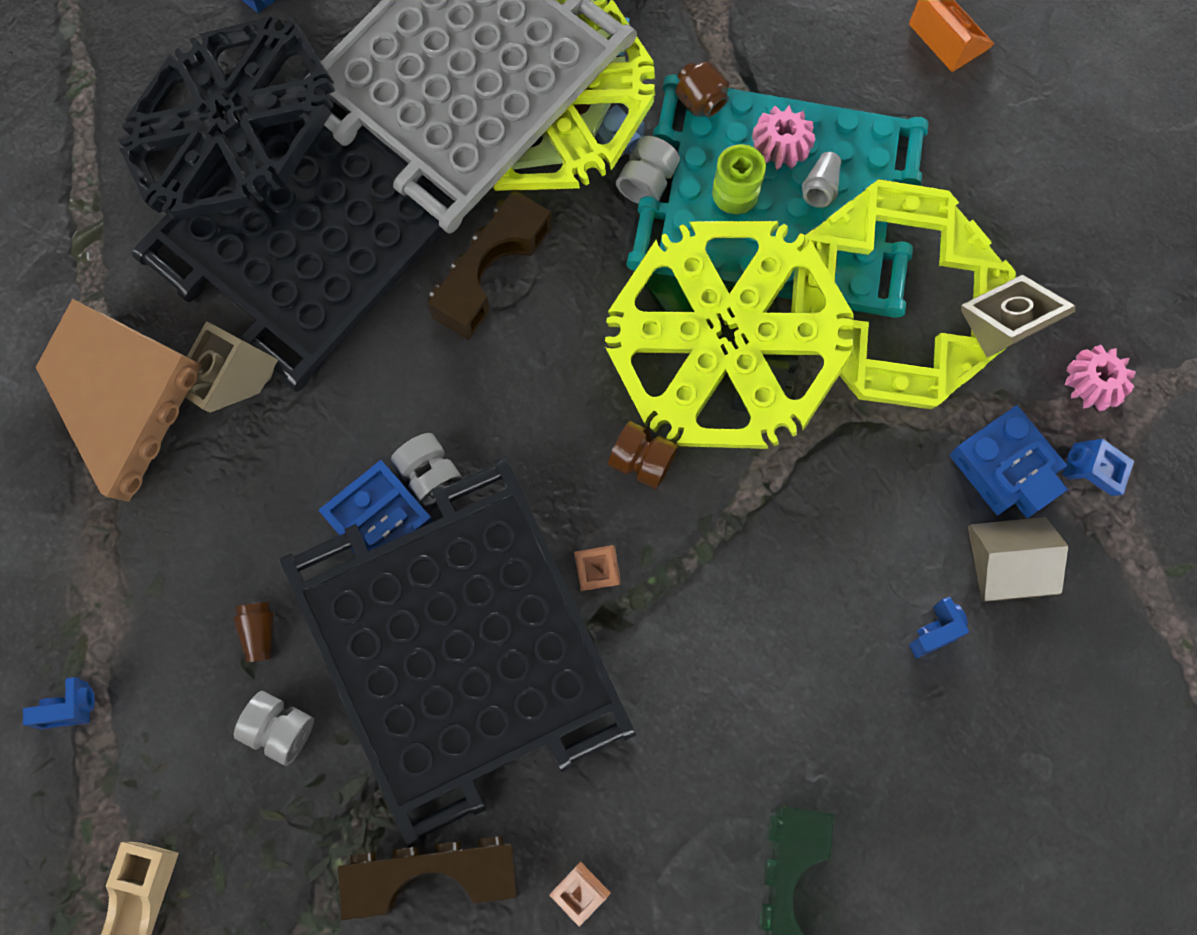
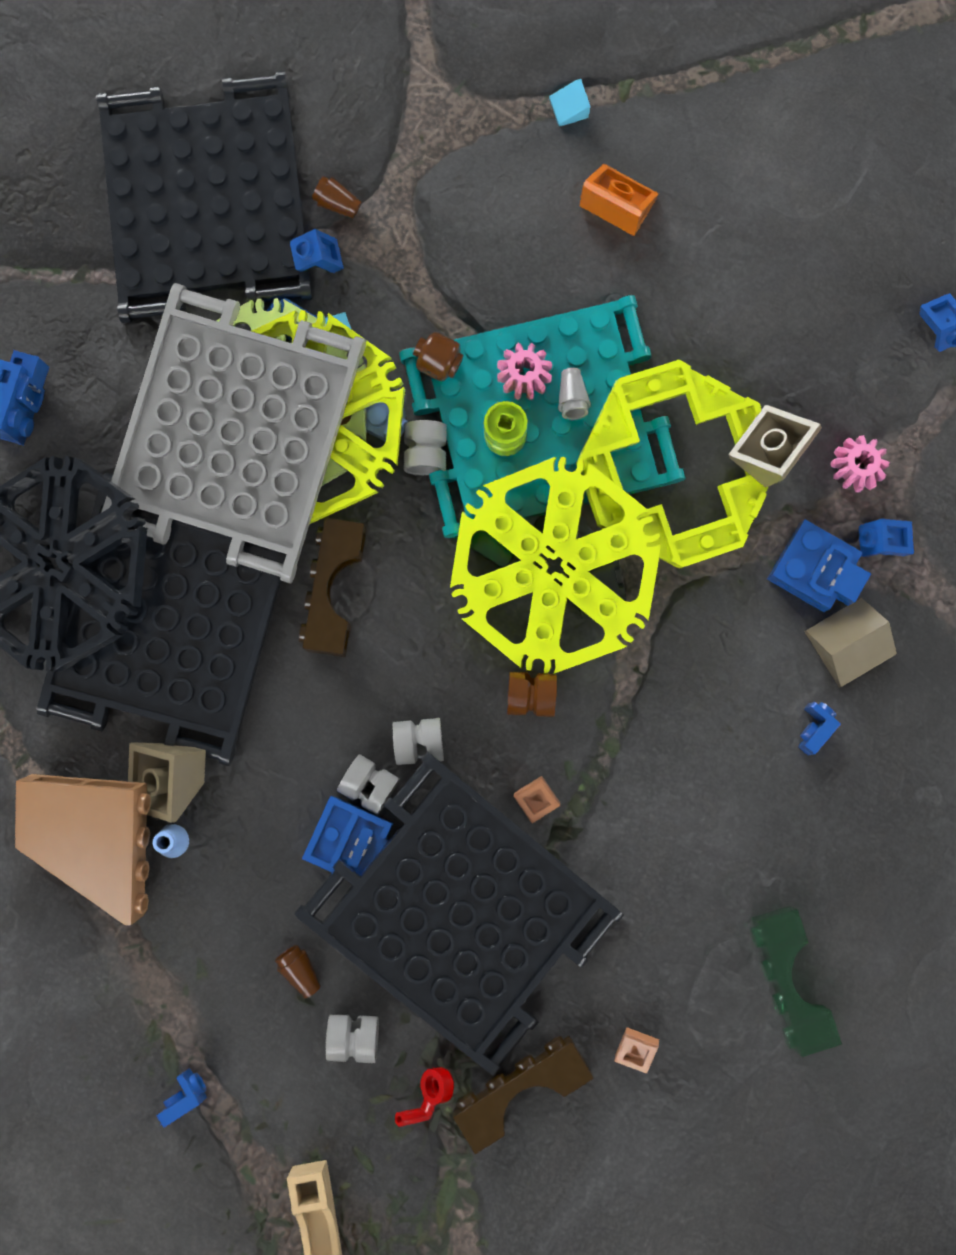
camera: 20 degrees left, 10 degrees up
(194, 435) = (178, 841): none -> light blue cone
(337, 830) = (436, 1088): none -> red plate
(491, 438) = (415, 741): none -> light grey wheel

